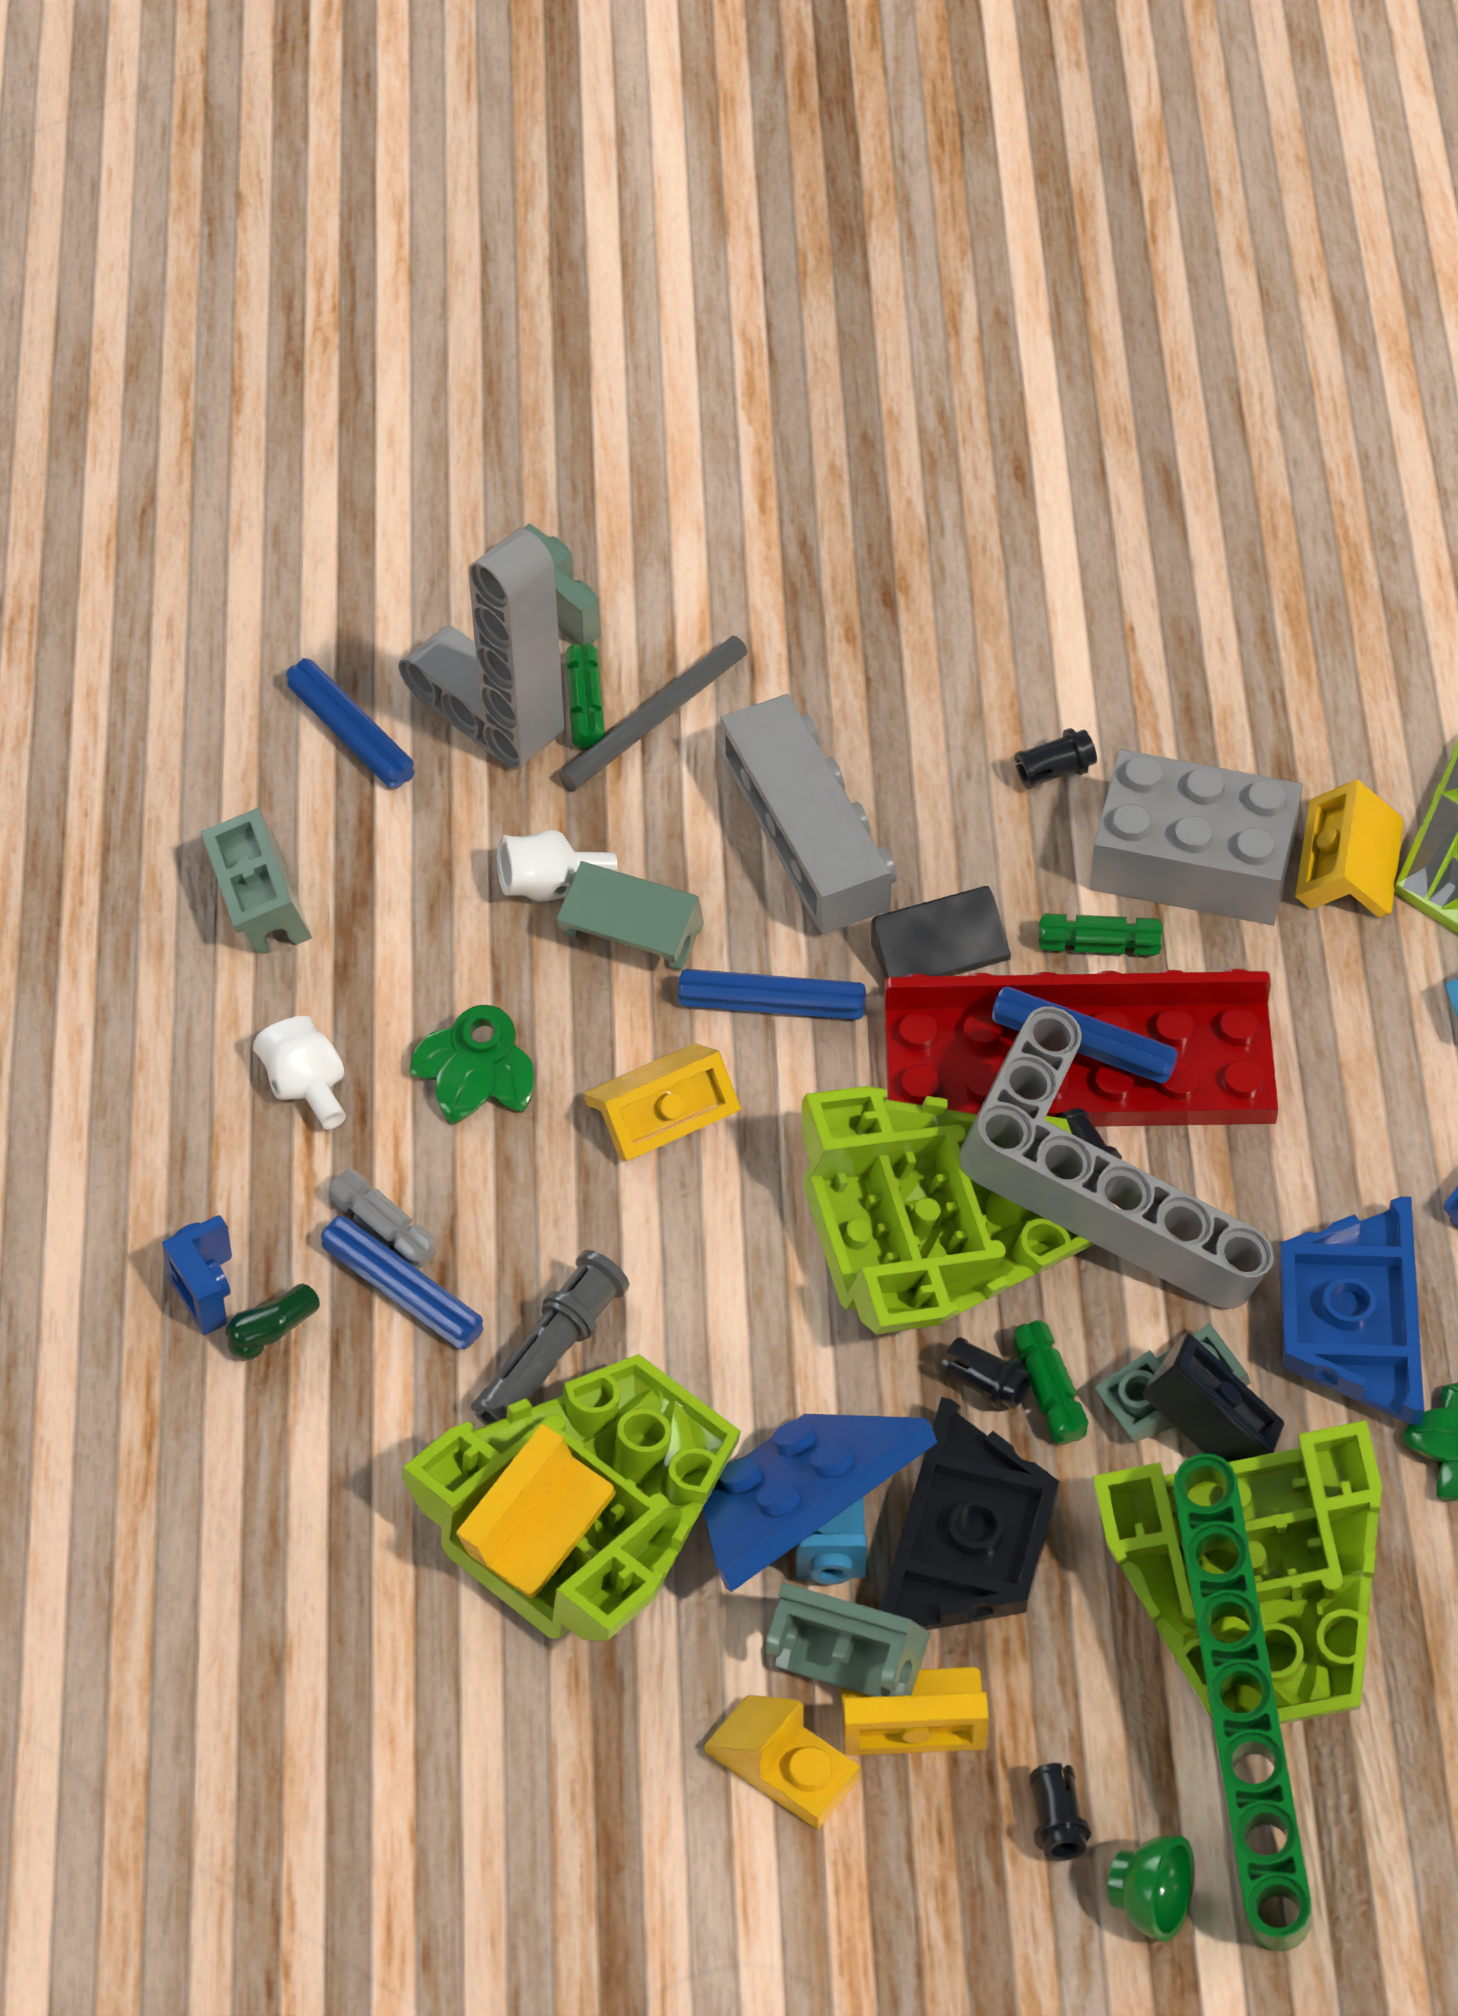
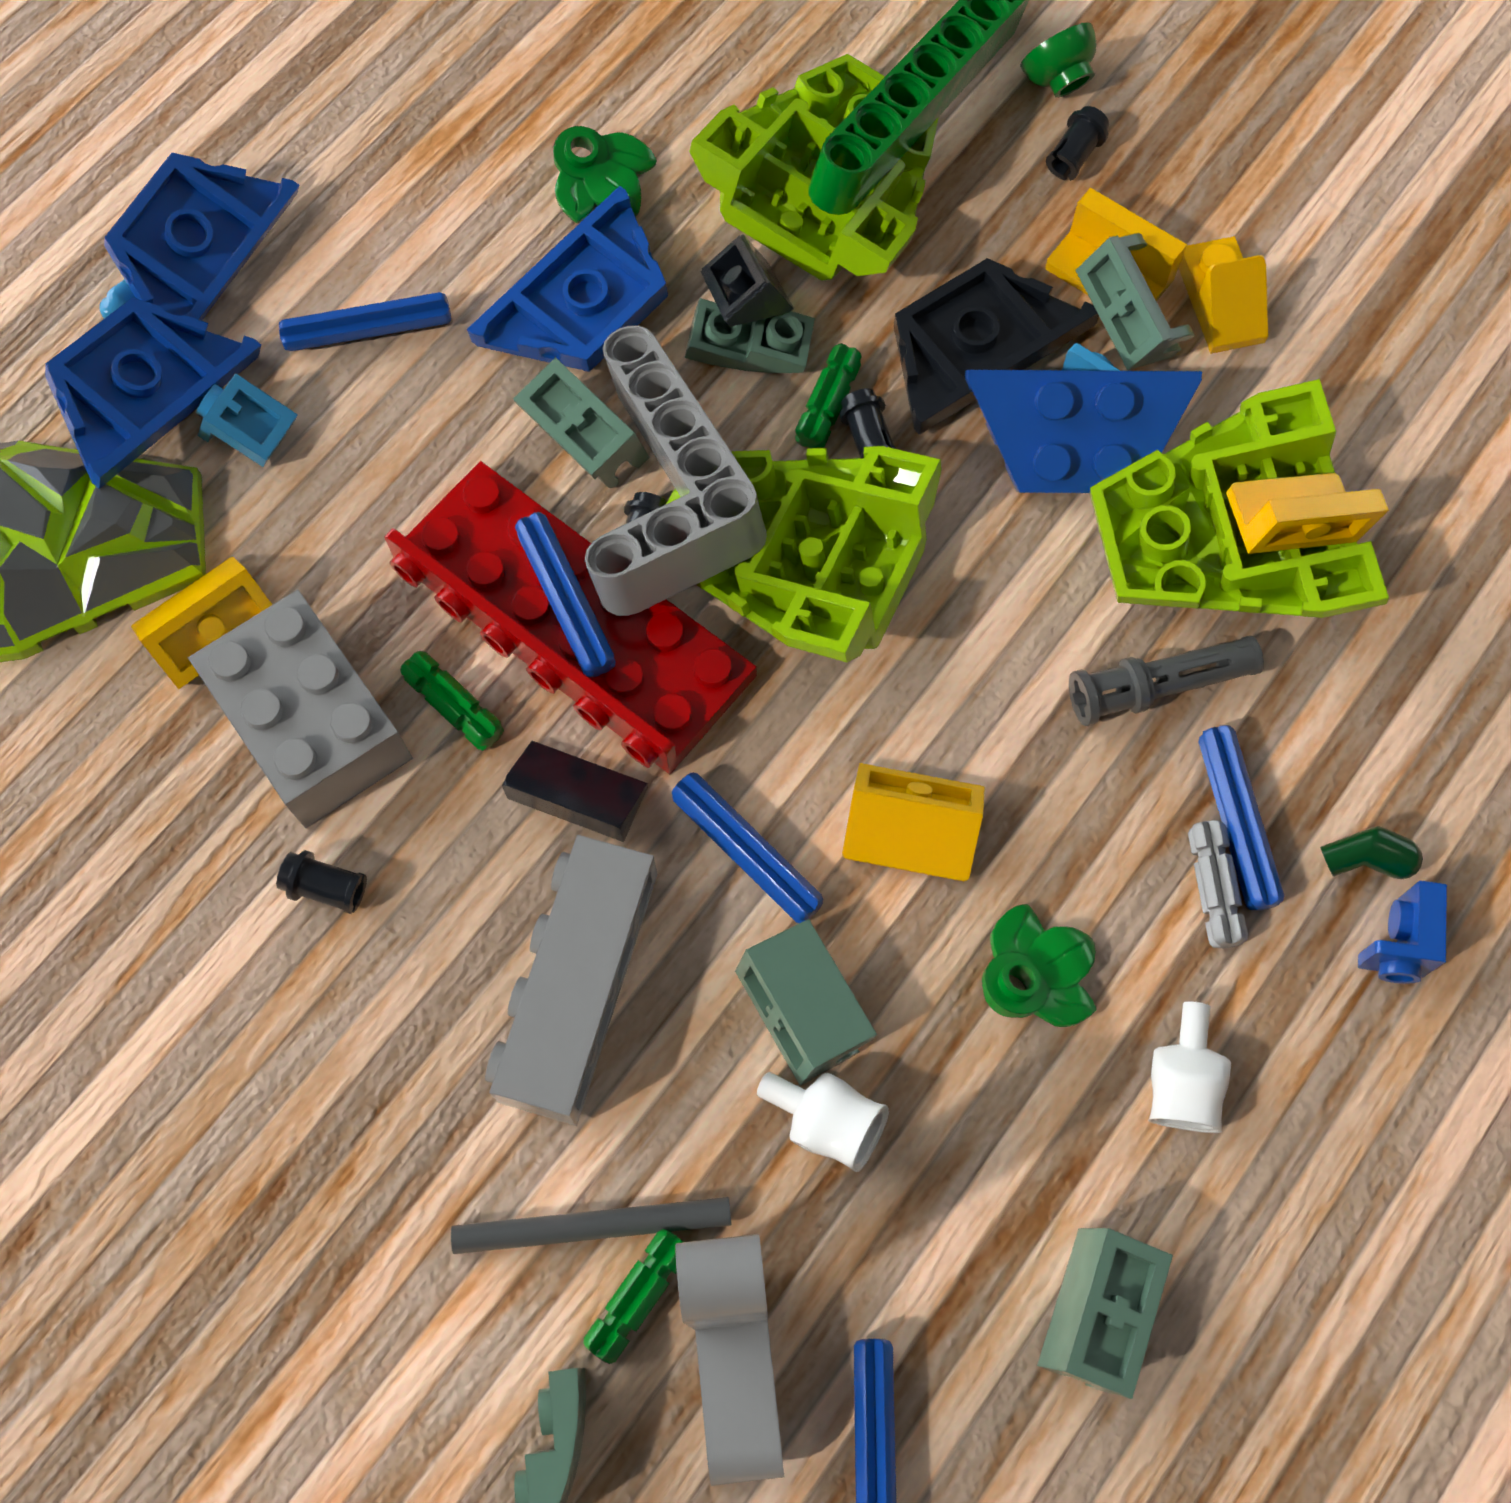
camera: 140 degrees left, 15 degrees up
(1234, 1177) = (580, 423): none -> sand green hinge

